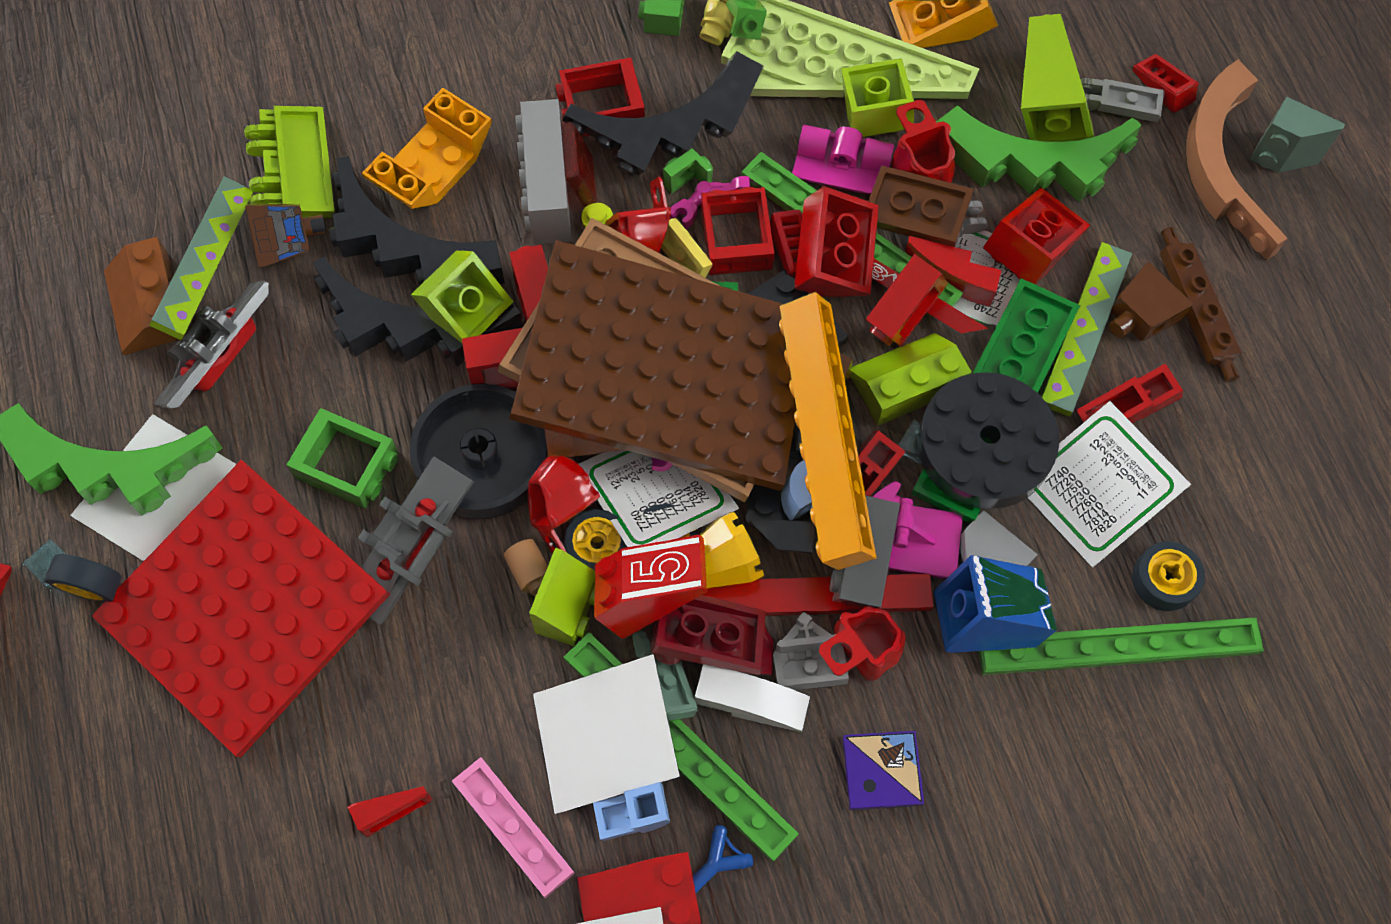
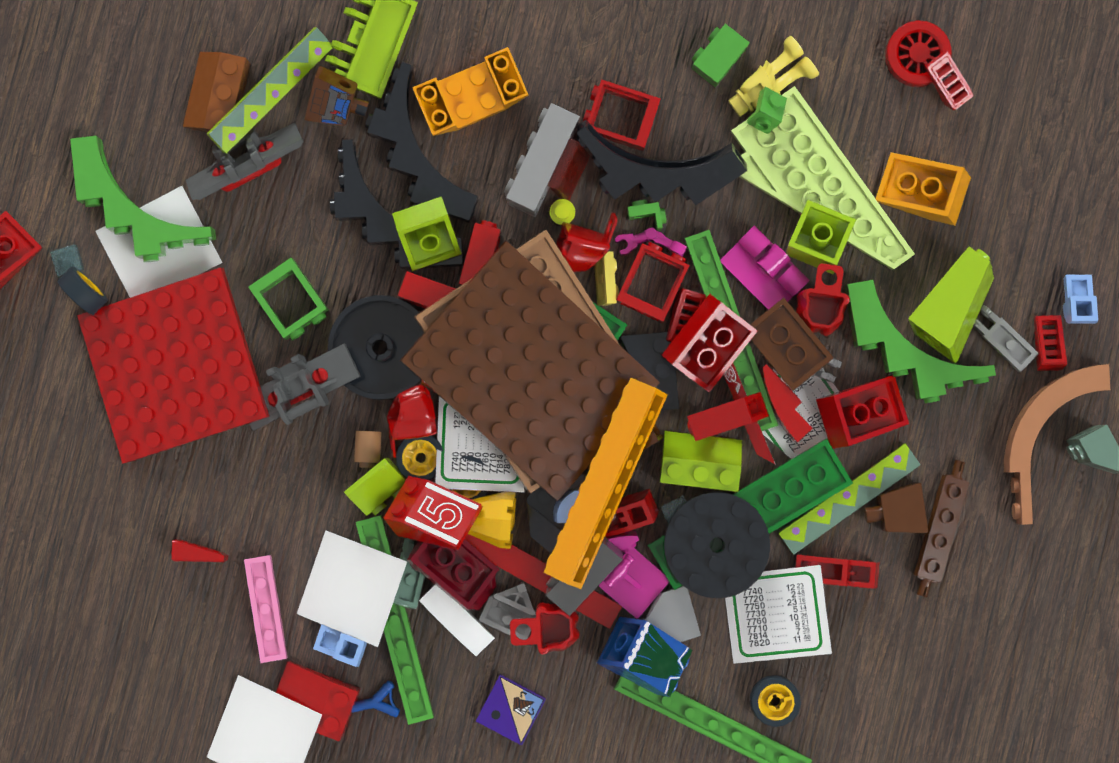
camera: 35 degrees right, 20 degrees up
(1165, 27) = (1079, 304): none -> light blue brick

